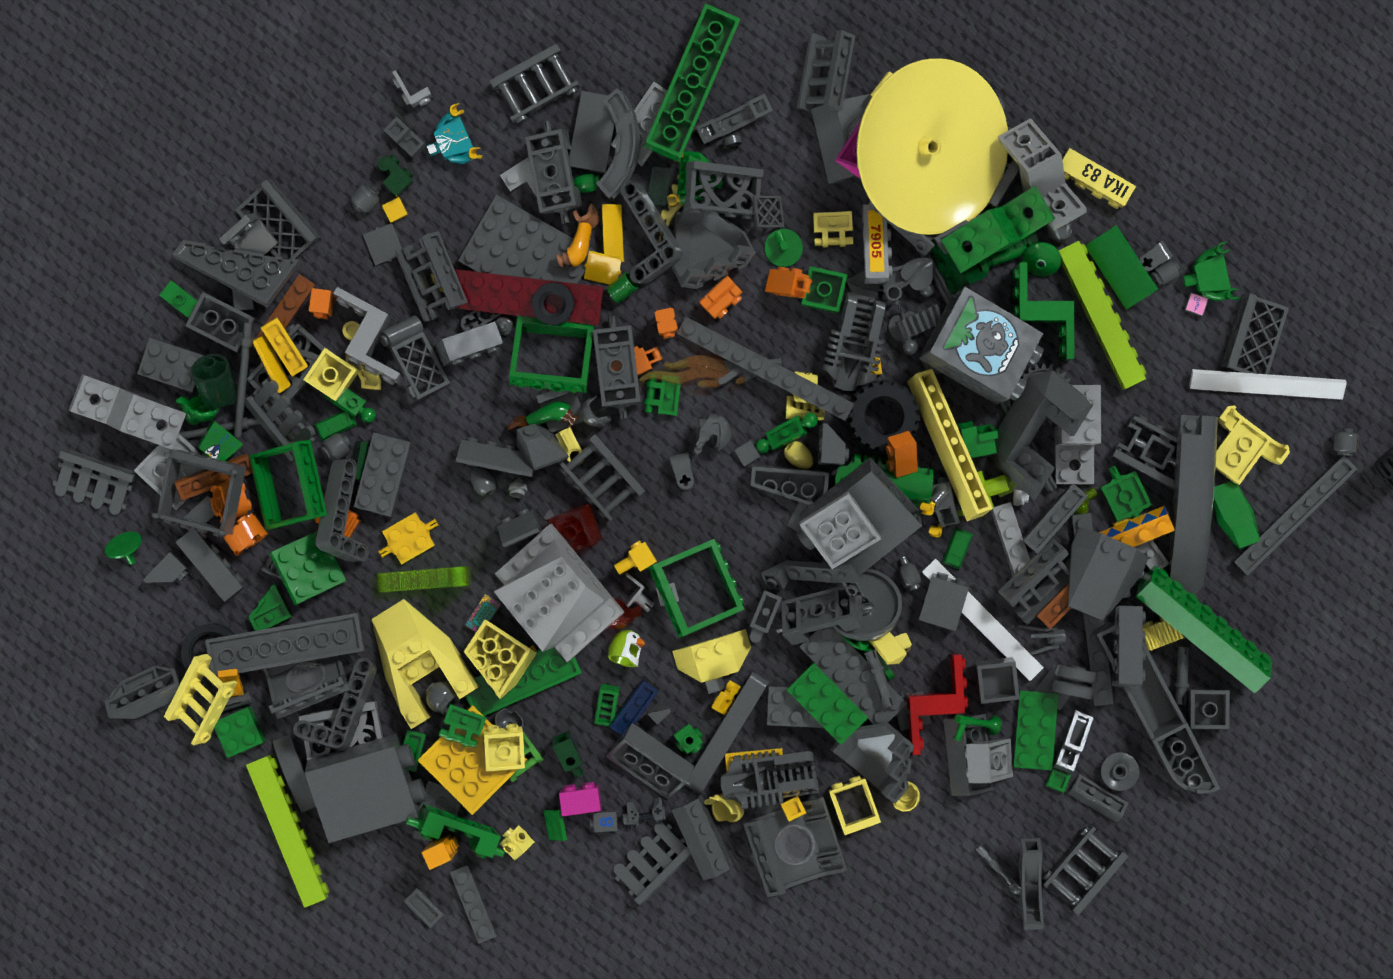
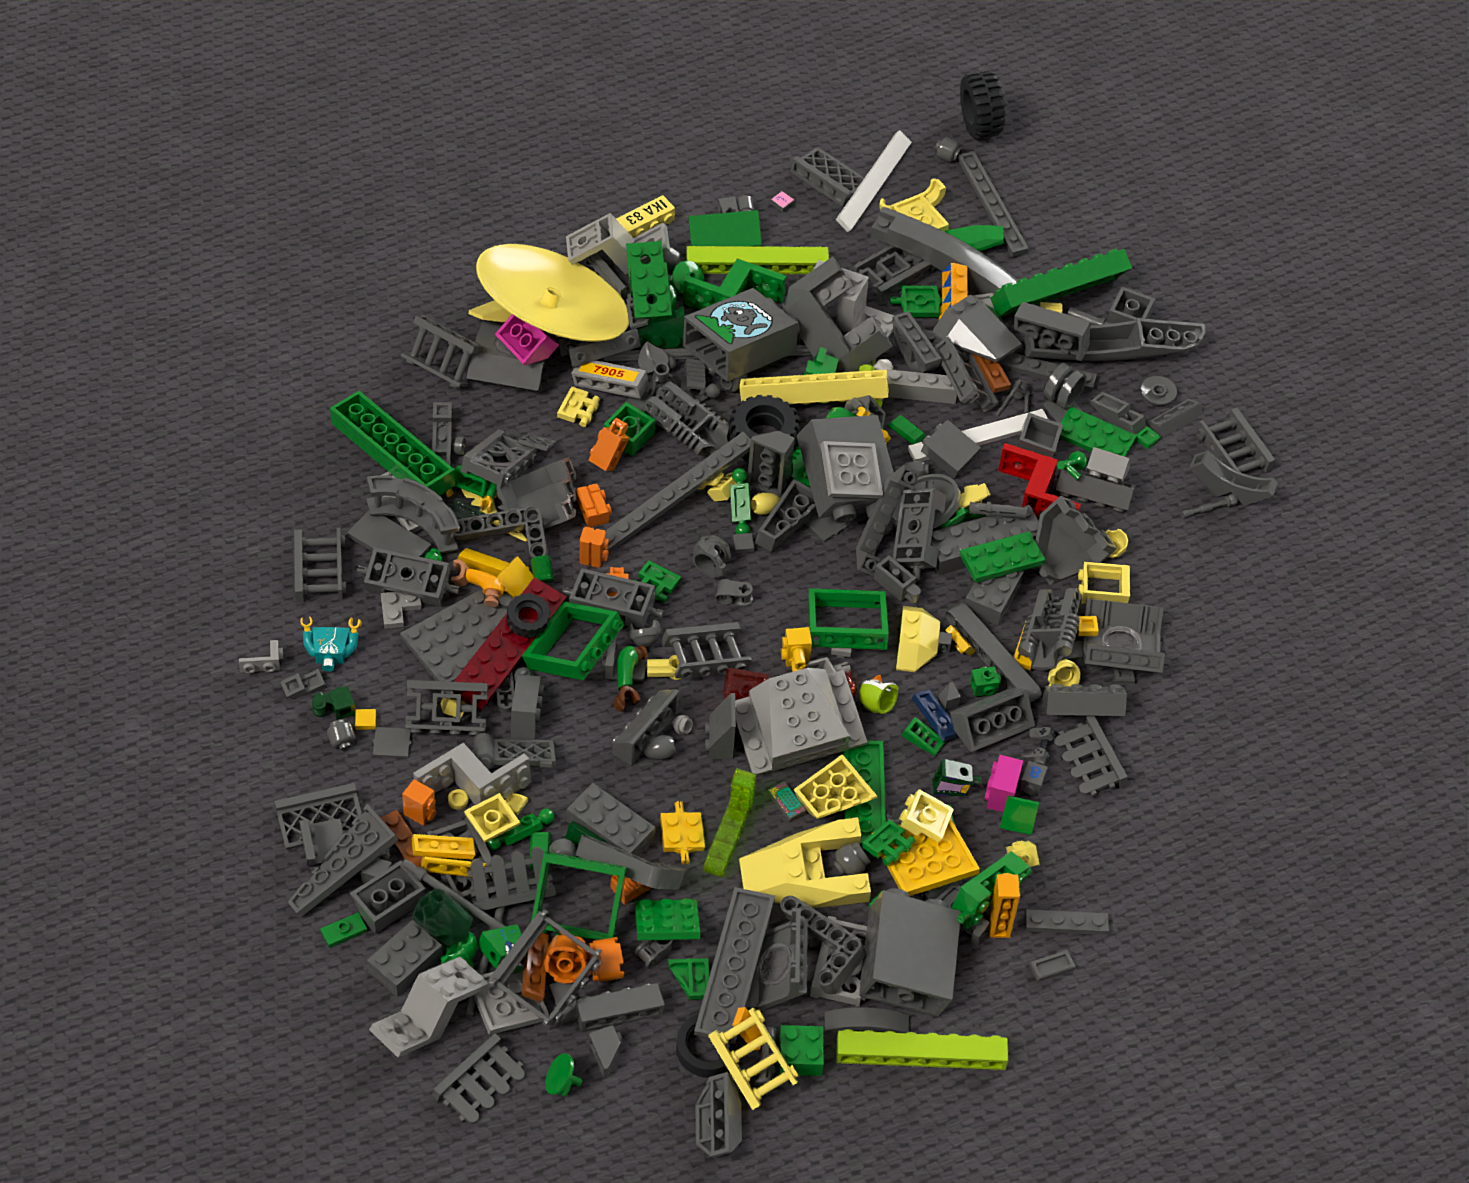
camera: 65 degrees left, 35 degrees down
(539, 446) = (652, 683): dark grey slope -> none
(704, 367) = (649, 540): piece -> none
(783, 247) = (575, 447): green shield -> none
(902, 454) = (801, 412): orange brick -> none
(1211, 275) = (764, 180): green torso -> none

